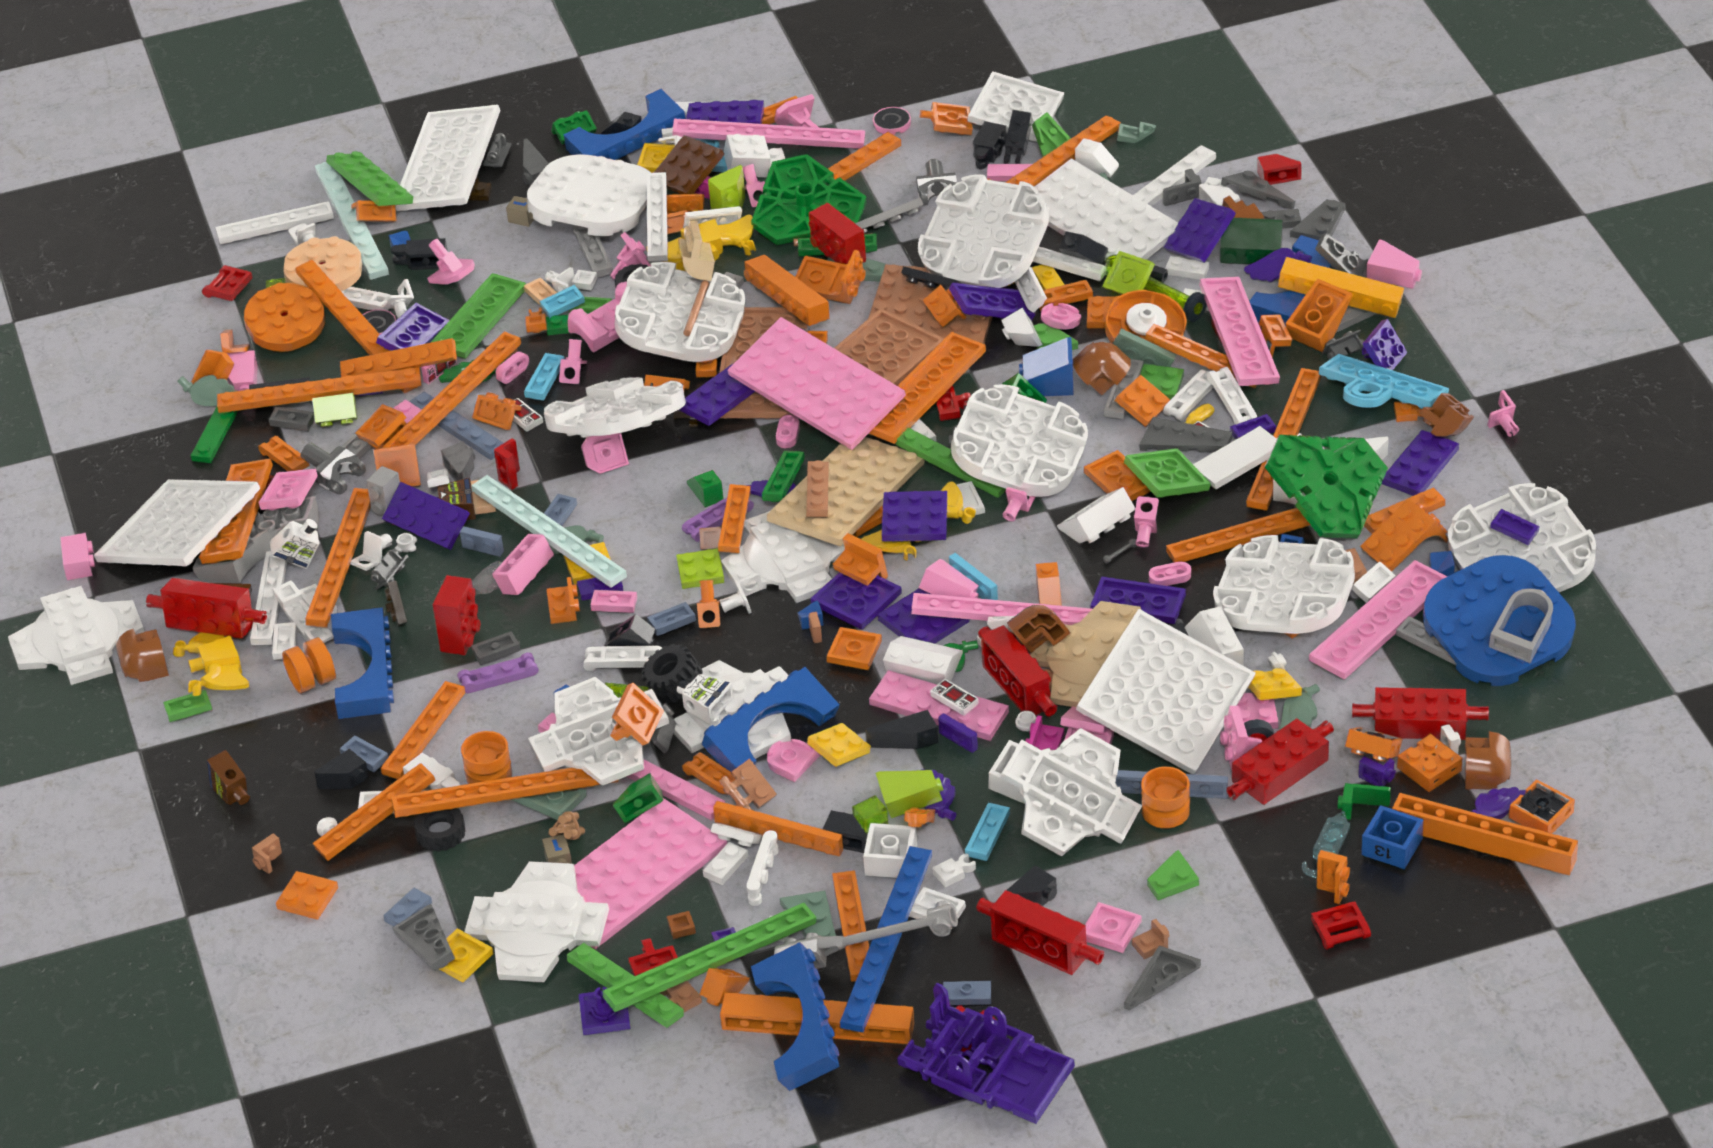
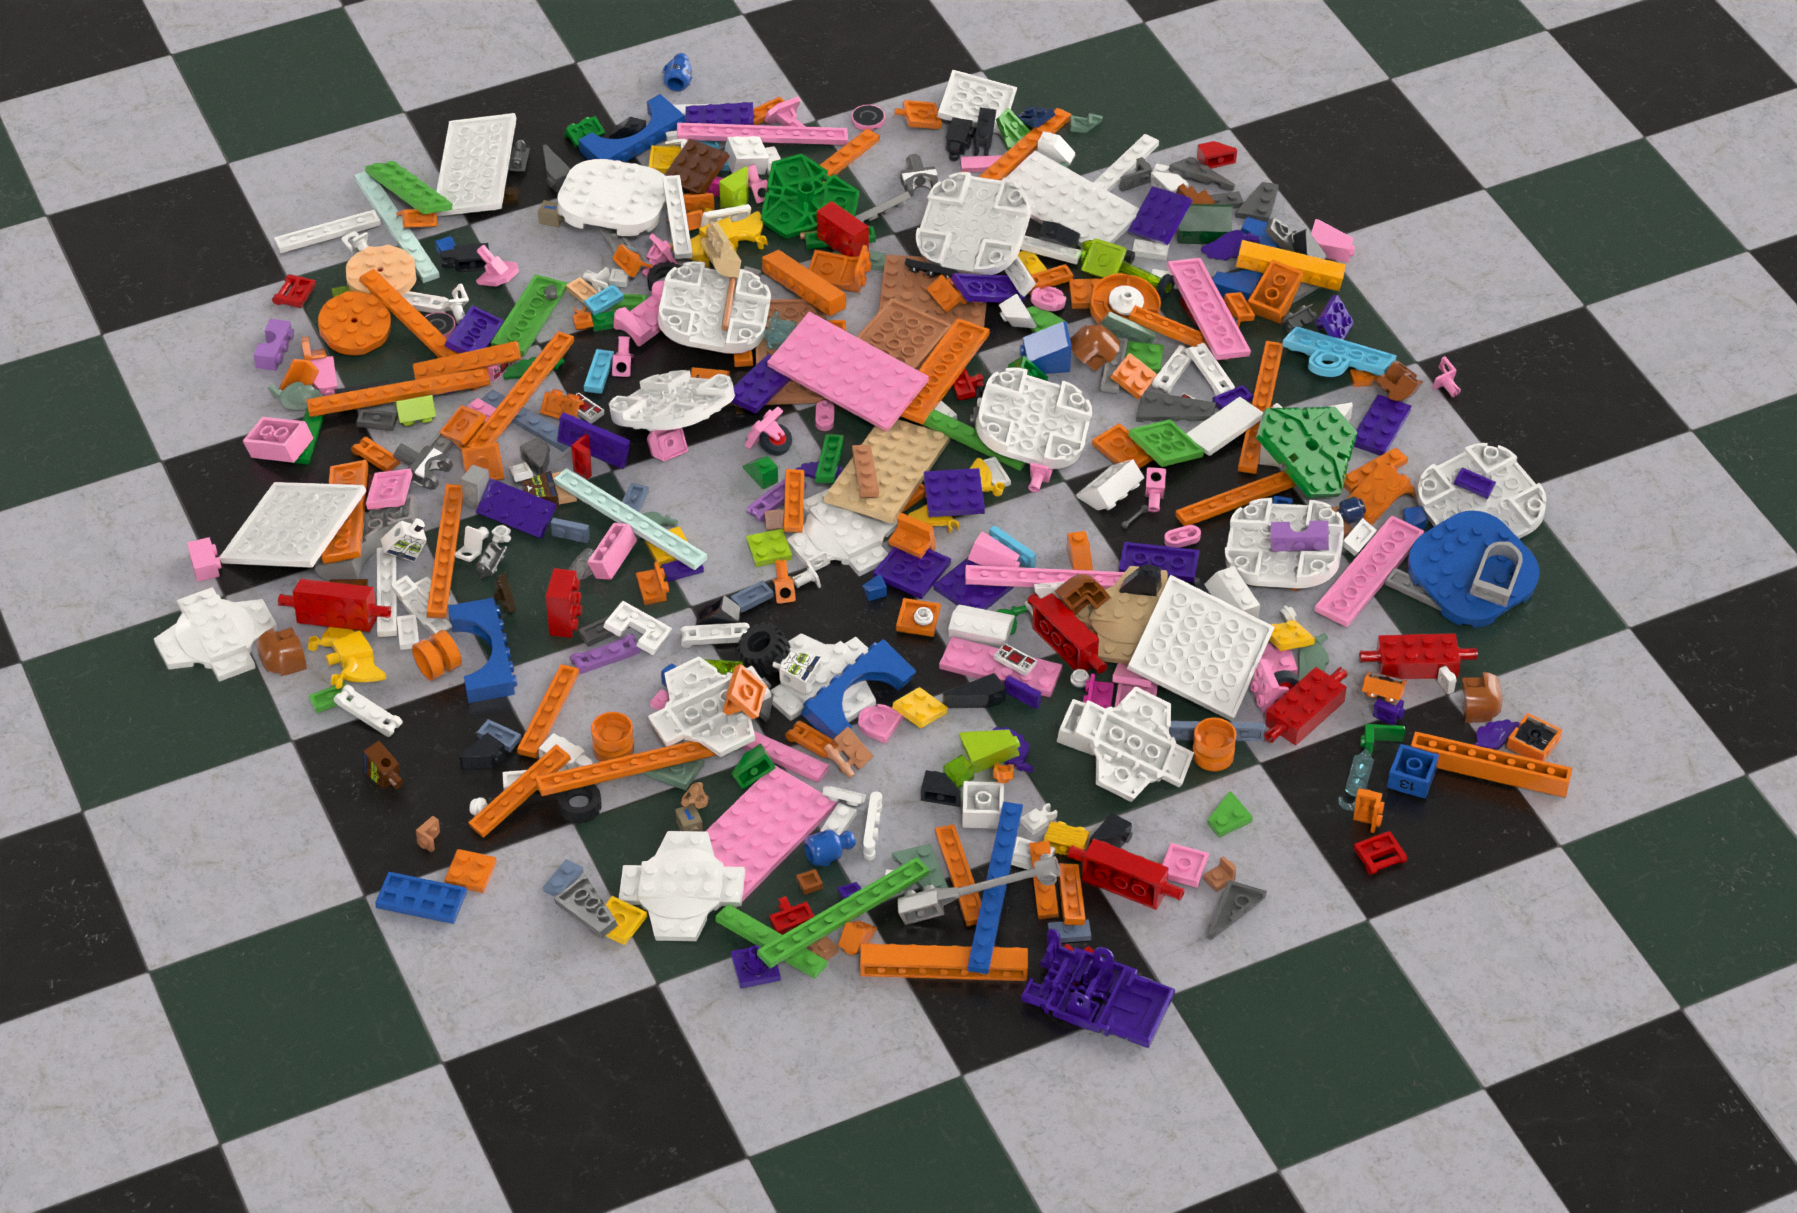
camera: 10 degrees left, 5 degrees up
(178, 434) = (278, 439): none -> bright pink brick
(201, 329) = (278, 336): none -> medium lavender arch
(224, 721) = (367, 711): none -> white plate
(246, 920) = (421, 897): none -> blue plate
(504, 291) = (550, 292): none -> dark grey hinge
(512, 367) = (568, 363): bright pink plate -> none
(532, 450) = (603, 443): none -> dark purple plate
(553, 649) = (654, 631): none -> white plate
(597, 260) = (630, 259): none -> orange panel
(614, 601) = (698, 582): bright pink plate -> none
(687, 68) = (677, 73): none -> blue piece
(706, 887) = (827, 846): none -> blue piece
(723, 450) = (772, 436): none -> plate
(745, 338) = (778, 331): none -> clear light blue bracket
(786, 830) = (890, 790): orange plate -> none
(814, 1047) = (948, 993): blue arch -> none
(815, 627) = (881, 599): nougat tile -> none
(858, 646) = (923, 616): none -> white plate
(947, 946) = (1045, 894): none -> orange plate
(974, 887) = (1064, 836): none -> yellow brick
(974, 952) = (1071, 895): none -> orange plate
(987, 831) = (1063, 782): medium azure plate -> none
(1079, 123) = (1036, 116): none -> dark blue plate
(1111, 616) = (1143, 581): none -> black slope
(1200, 413) = (1184, 386): yellow piece -> none
(1316, 579) = (1312, 539): none -> medium lavender arch
(1362, 265) = (1306, 244): none -> slope
(1367, 551) = (1352, 509): none -> dark blue head
(1429, 763) = (1432, 701): orange piece -> none

